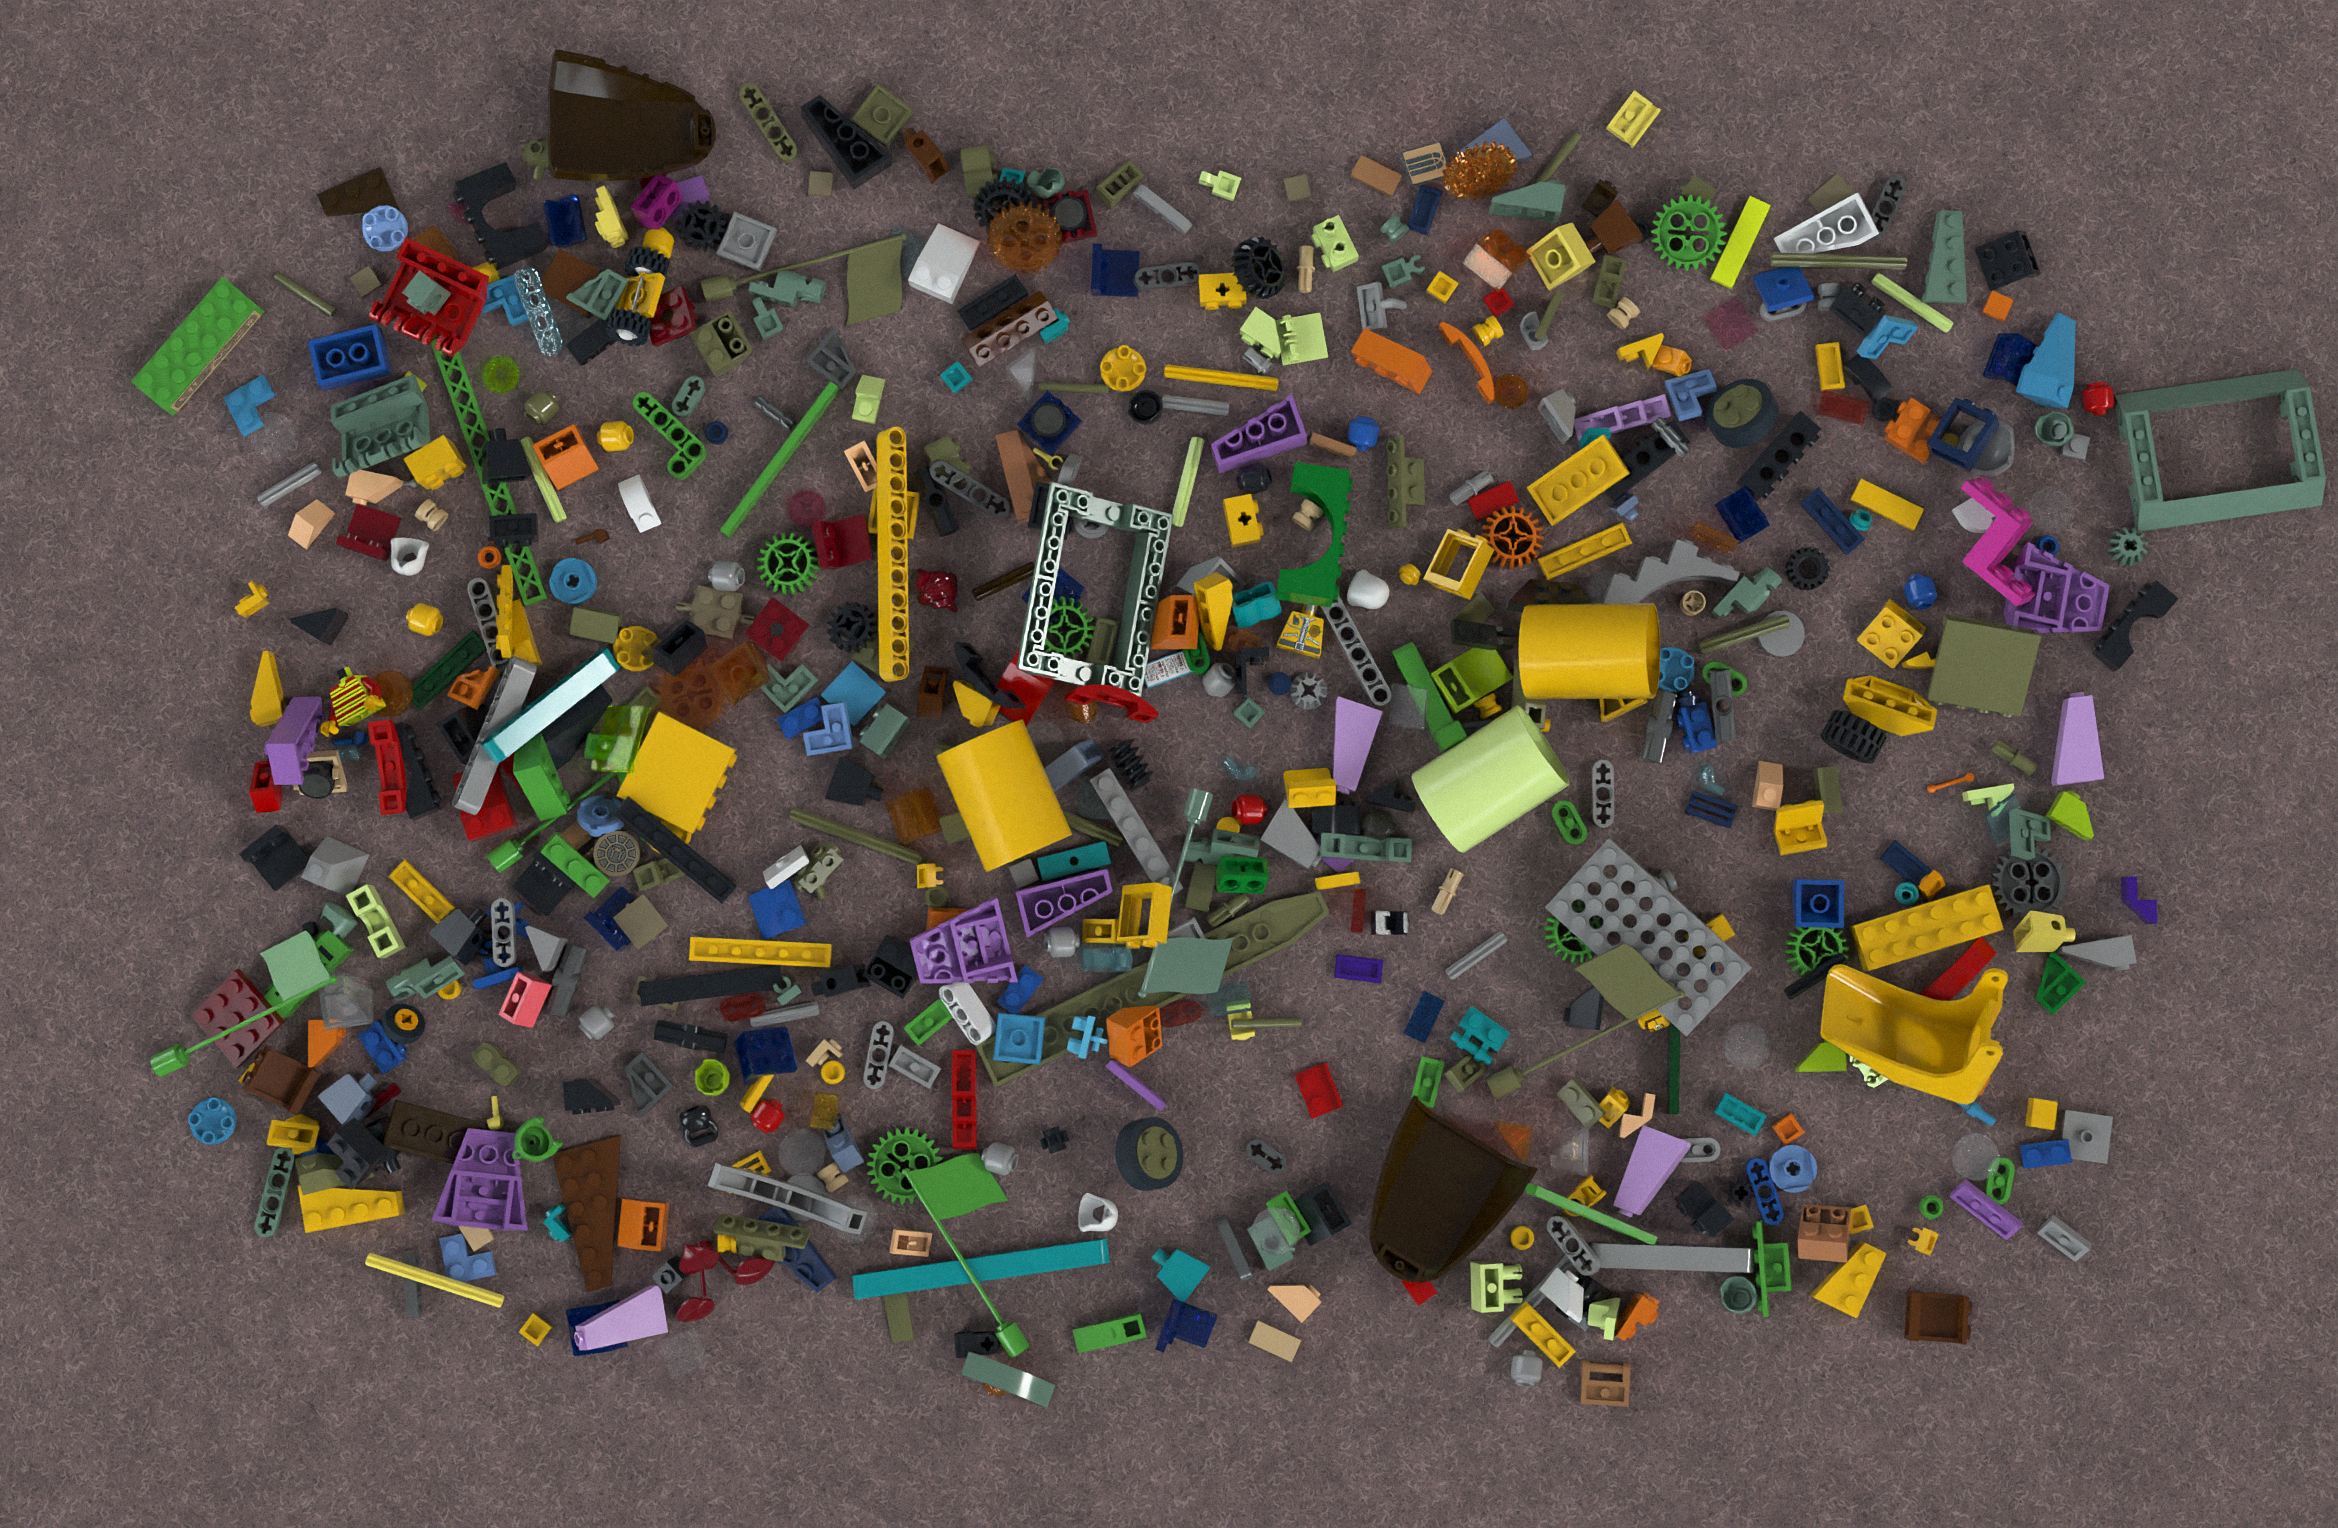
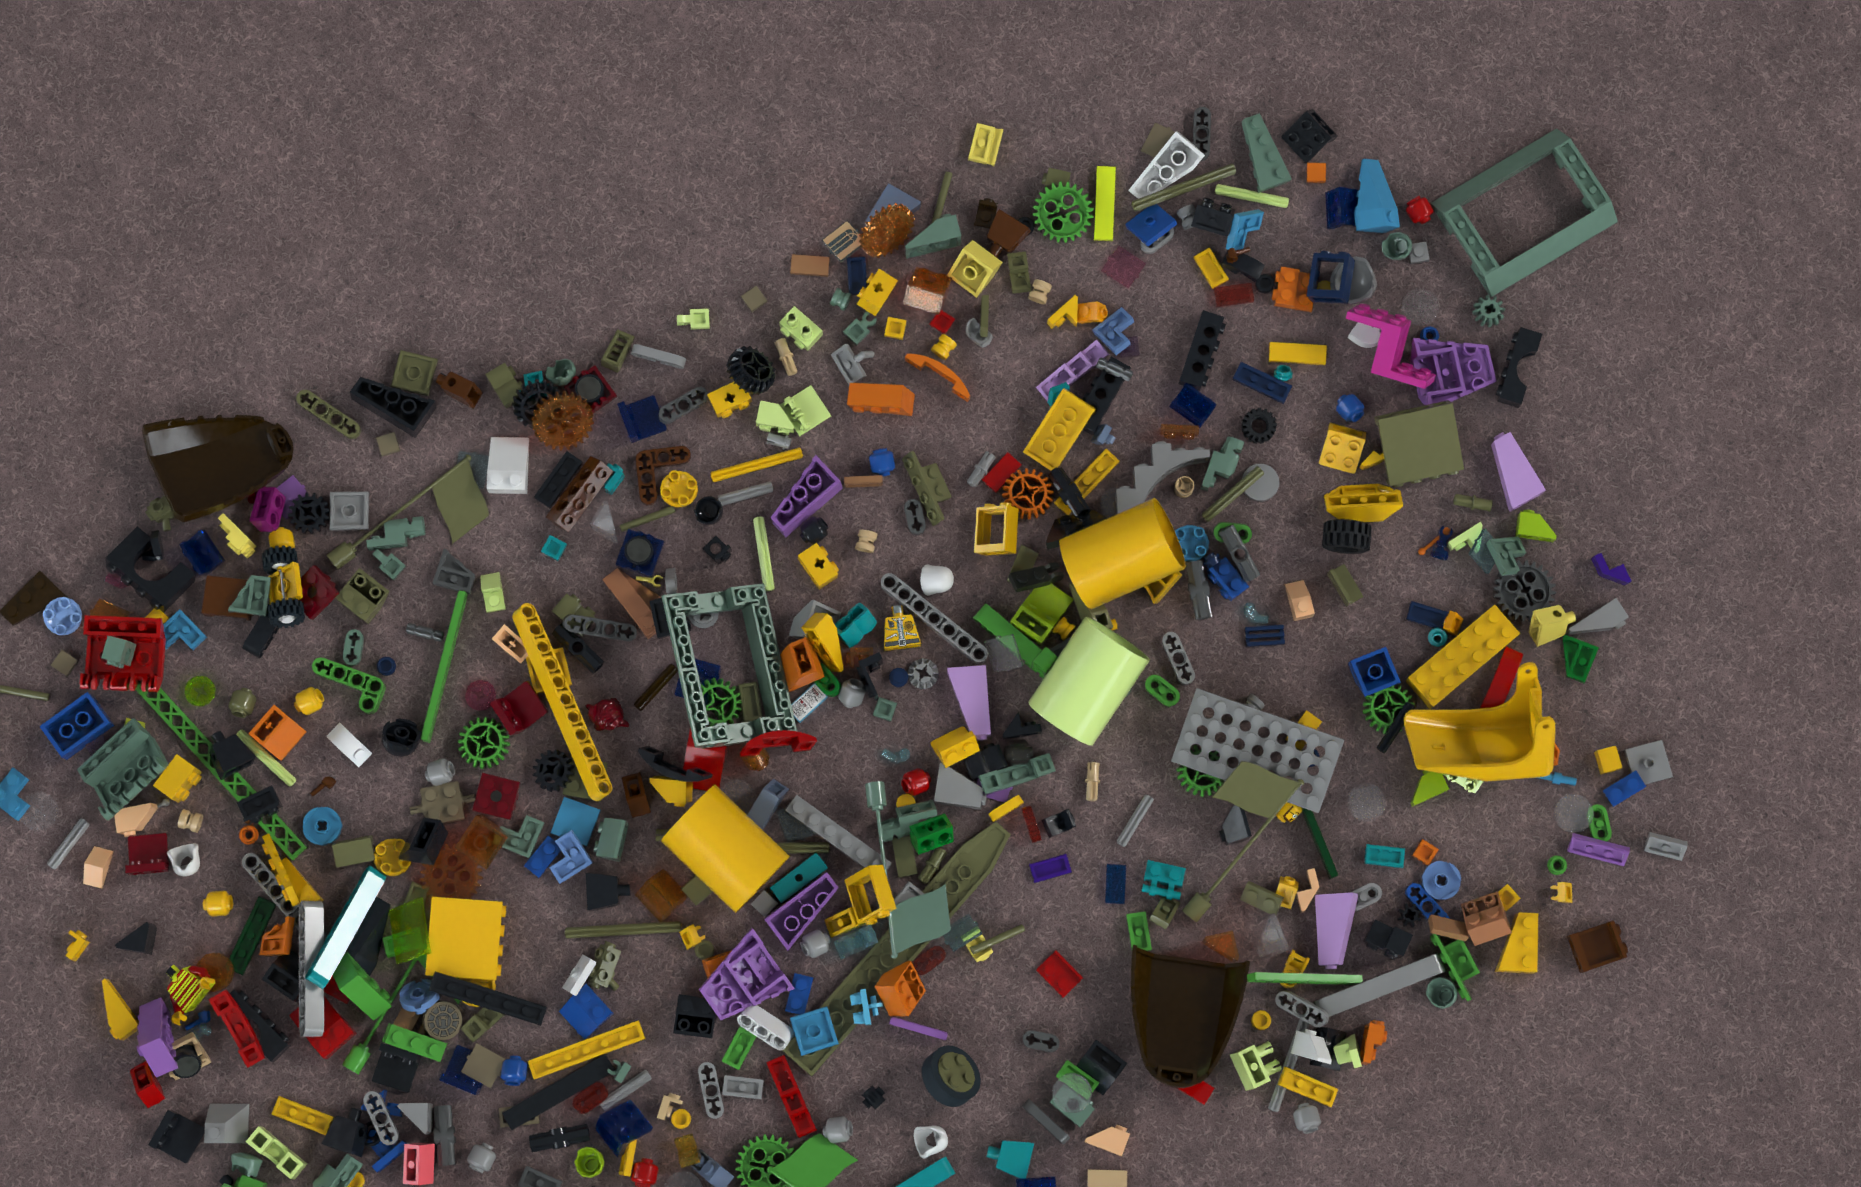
camera: 30 degrees left, 5 degrees down
(518, 197) = (157, 551): none -> black tile
(534, 312) = (206, 632): clear light blue beam -> none
(671, 941) = (514, 1071): none -> blue head
(698, 519) = (400, 737): none -> black cylinder
(847, 979) = (663, 1040): black torso -> none
(1107, 327) = (653, 463): none -> reddish brown beam
(1131, 764) = (812, 785): black piece -> none
(1138, 465) = (725, 552): none -> black bracket
(1329, 491) = (874, 516): green arch -> none
(1379, 510) = (919, 516): none -> dark grey beam
(1409, 574) = (962, 554): yellow plate -> none
(1449, 232) = (873, 301): none -> yellow brick
(1508, 385) = (976, 381): clear orange hair -> none
(1559, 413) = (1024, 386): light grey slope -> none
(1559, 556) = (1069, 493): none -> black piece
(1605, 1391) = (1372, 1110): medium nougat plate -> none
(1742, 413) = (1160, 329): wheel -> none
(1777, 1225) = (1448, 927): none -> medium nougat tile
(1800, 827) = (1336, 621): yellow bracket -> none
(1861, 361) = (1232, 255): none -> reddish brown hand
(1950, 797) = (1439, 552): none -> clear blue piece

